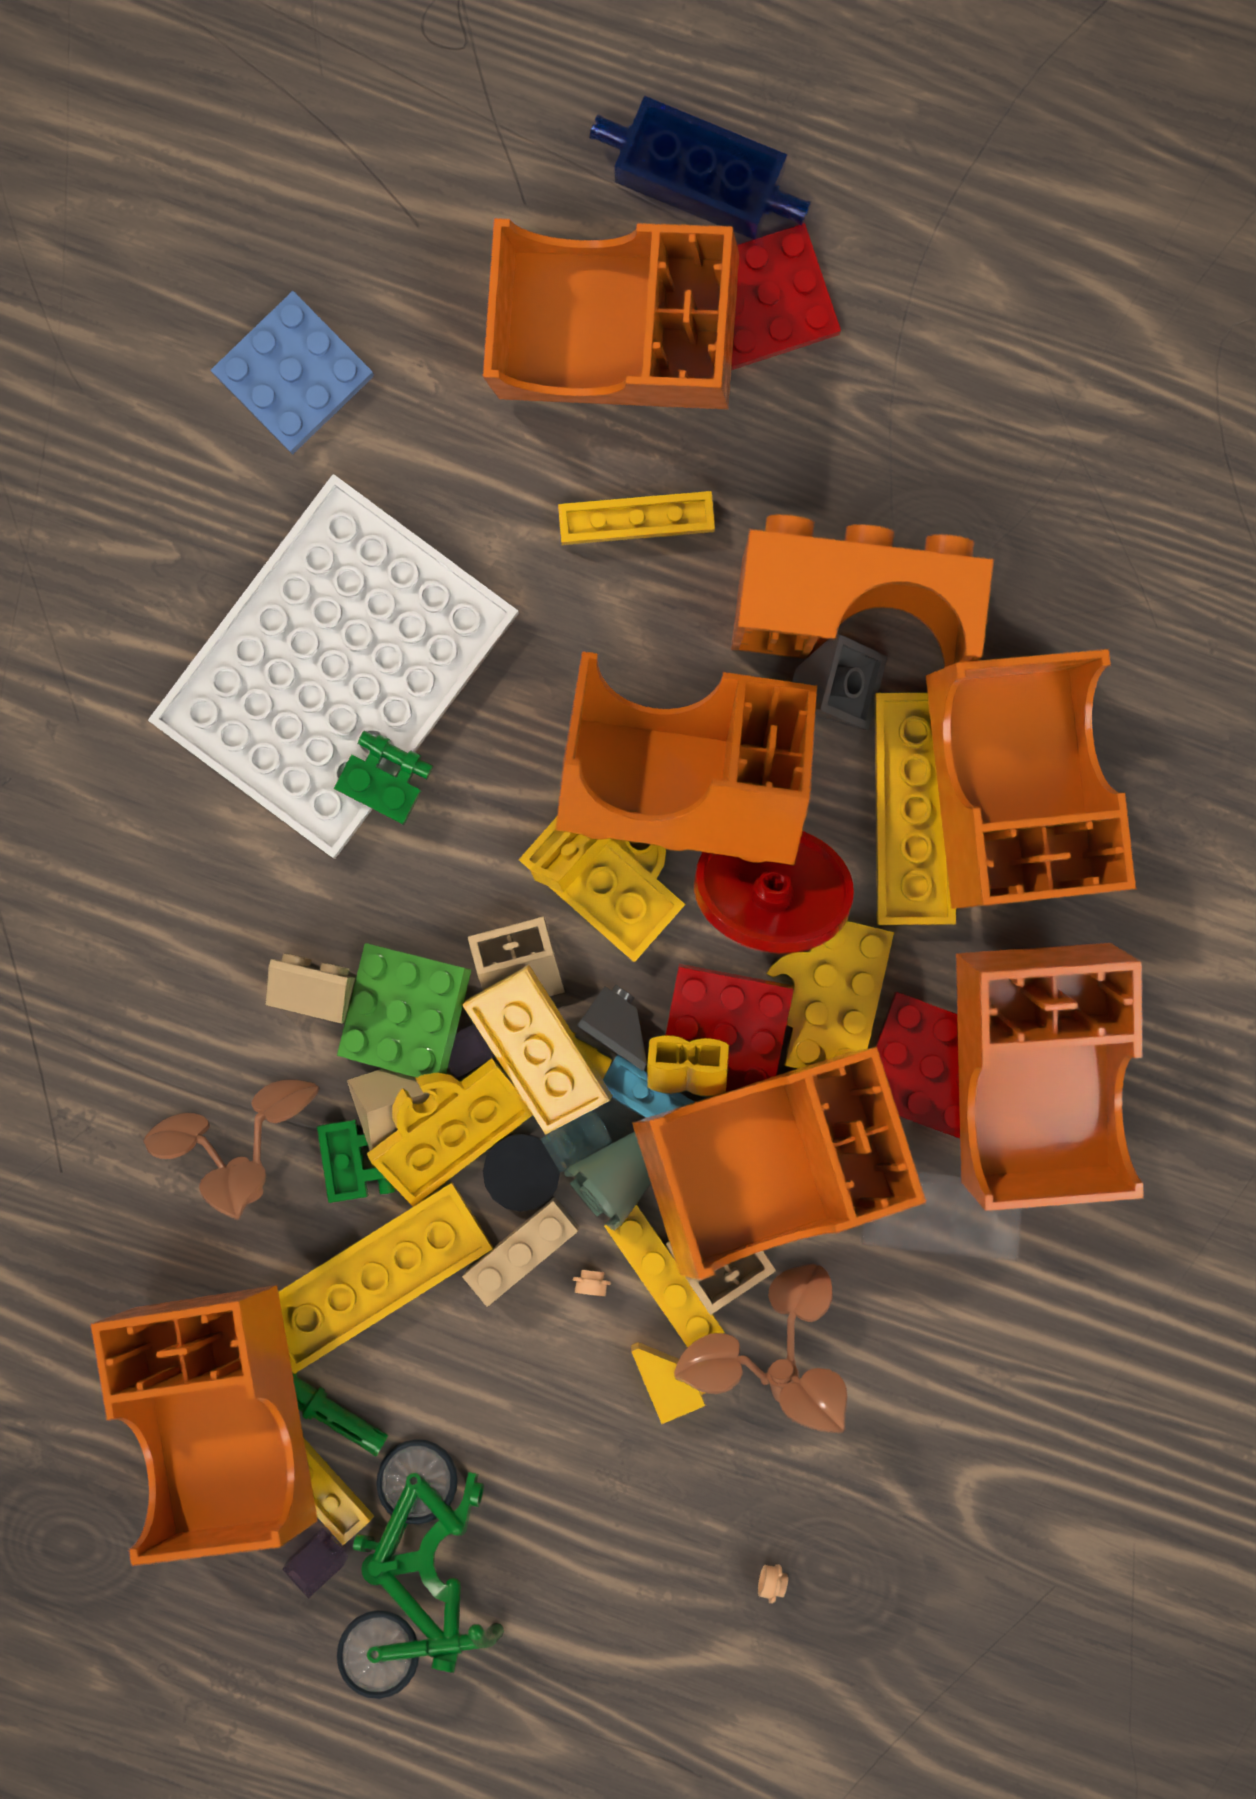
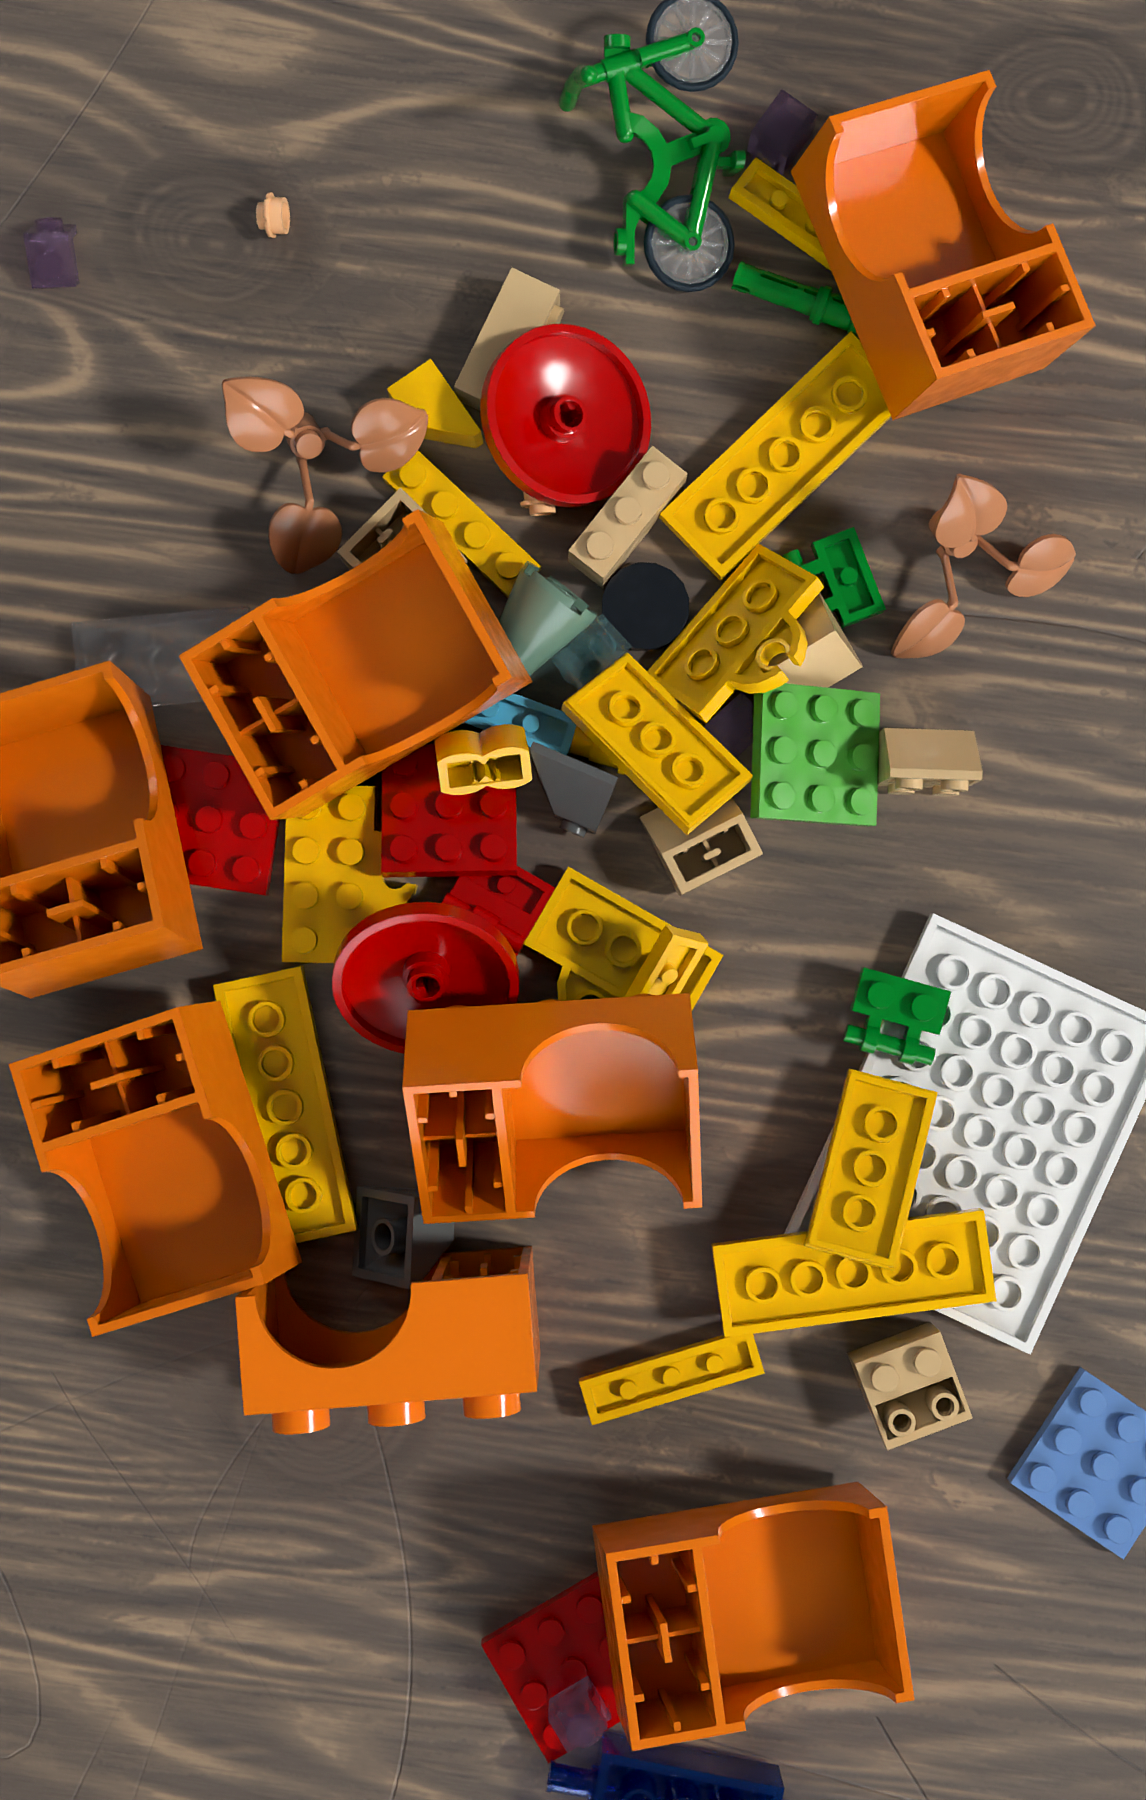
camera: 165 degrees right, 0 degrees up
(433, 654) = (871, 1169): none -> yellow tile
(439, 469) = (910, 1385): none -> tan slope
(466, 572) = (784, 1285): none -> yellow plate
(555, 1350) = (565, 415): none -> red dish
(591, 1423) = (519, 307): none -> tan brick
(696, 942) = (504, 901): none -> red plate
(771, 258) = (578, 1715): none -> clear purple brick
(971, 1589) = (51, 253): none -> clear purple bracket

